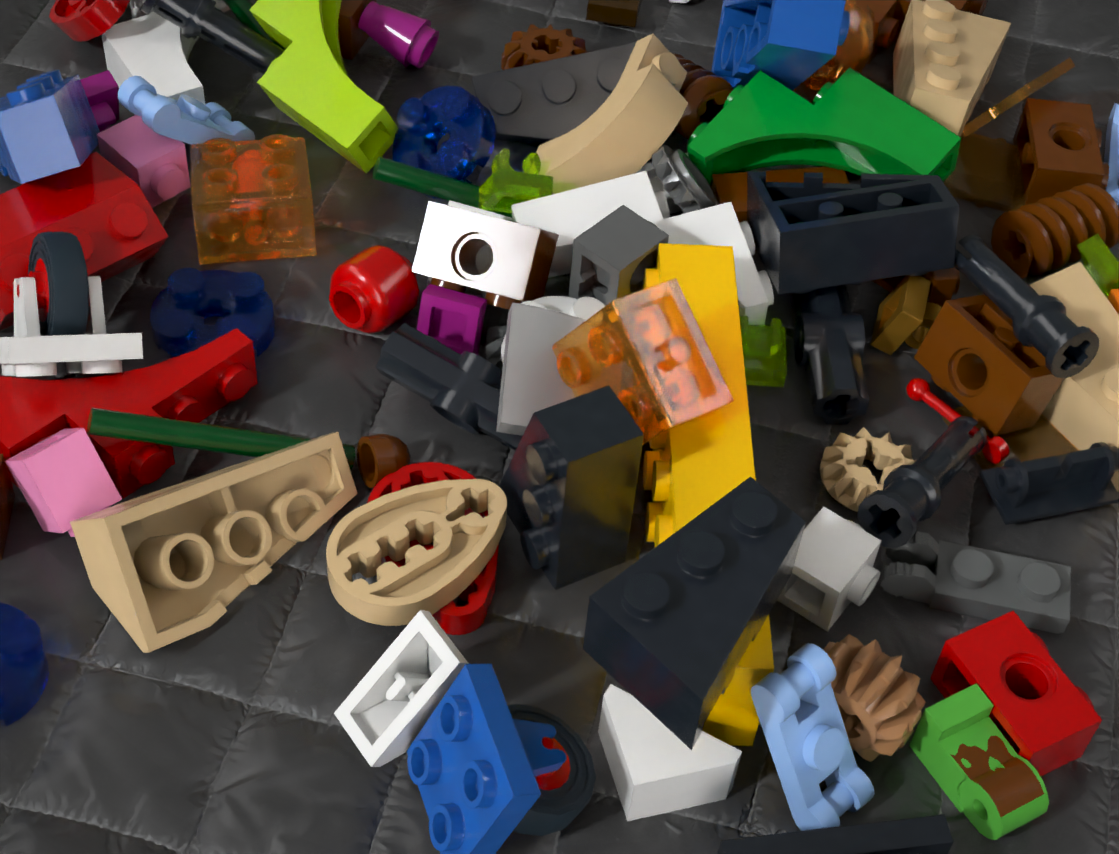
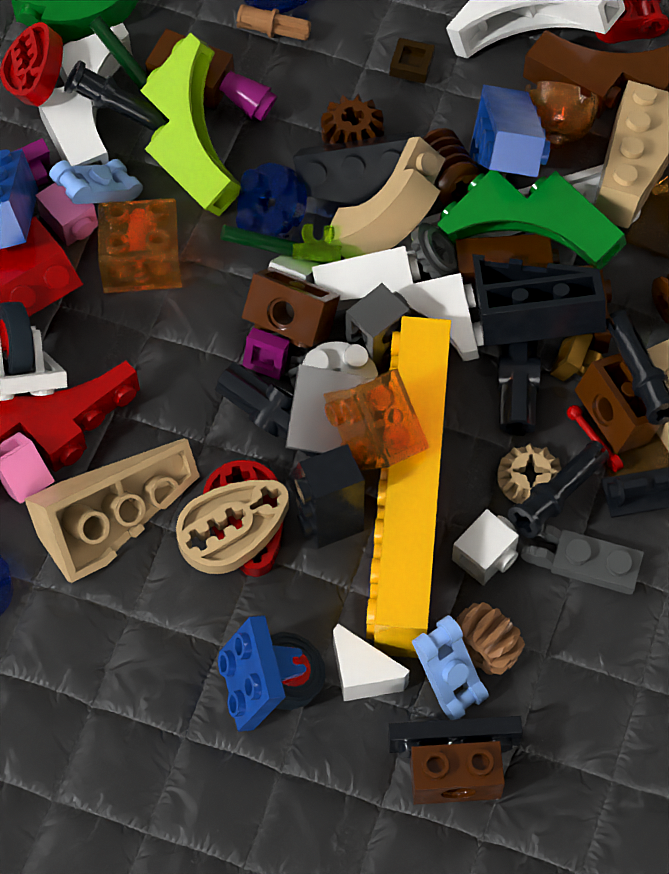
camera: 10 degrees right, 15 degrees up
(192, 434) = (102, 440): dark green bar -> none
(195, 295) = (107, 320): clear blue plate -> none
(373, 289) = (217, 325): red head -> none
(380, 456) = (215, 454): reddish brown hinge -> none
(401, 690) = (216, 618): white slope -> none
(693, 606) = (383, 591): black wedge -> none
(764, 353) = (468, 380): clear neon green tile -> none
(978, 764) = (554, 681): bright green leg -> none
(1007, 659) = (586, 665): red brick -> none

